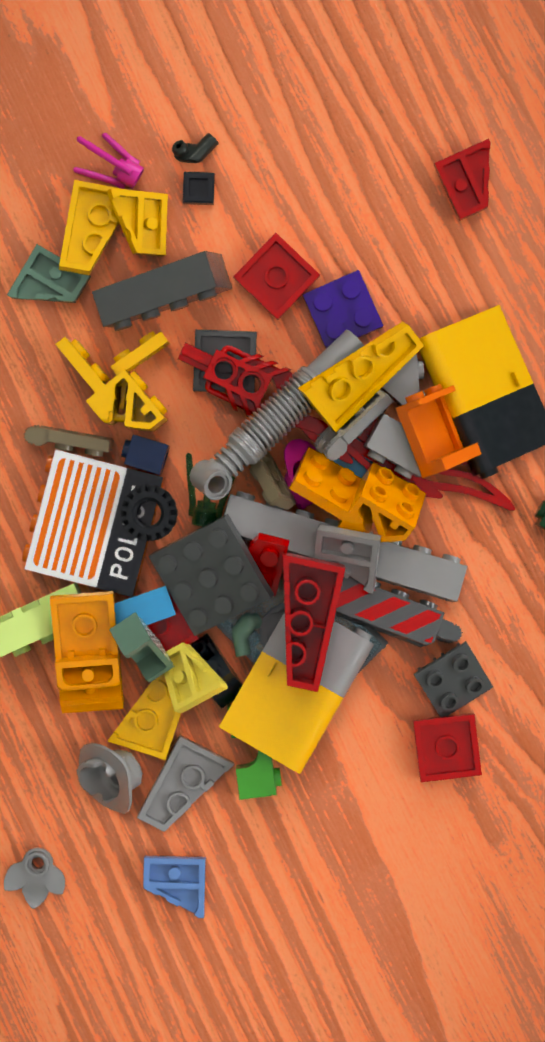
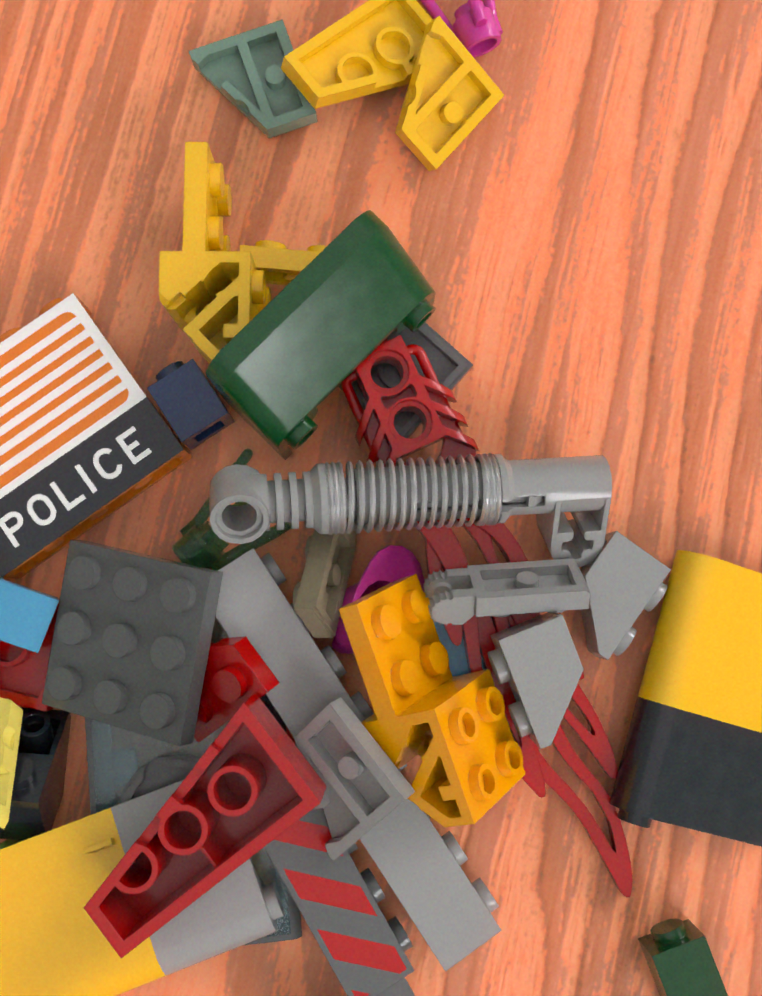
camera: 35 degrees right, 5 degrees down
(66, 439) = (106, 299): dark tan hinge -> none
(129, 513) = (85, 475): black tyre -> none
(162, 289) = (431, 211): dark grey wedge -> none
(185, 378) = (320, 331): none -> dark green windscreen
(194, 152) = (580, 75): pearl dark grey arm -> none
(198, 188) = (549, 124): black tile -> none
(242, 630) = (111, 753): sand green arm -> none
(276, 276) = (560, 314): red plate -> none
(342, 307) = (616, 421): dark purple plate -> none
(354, 380) = (559, 532): yellow wing -> none
(433, 432) = (607, 701): orange panel -> none

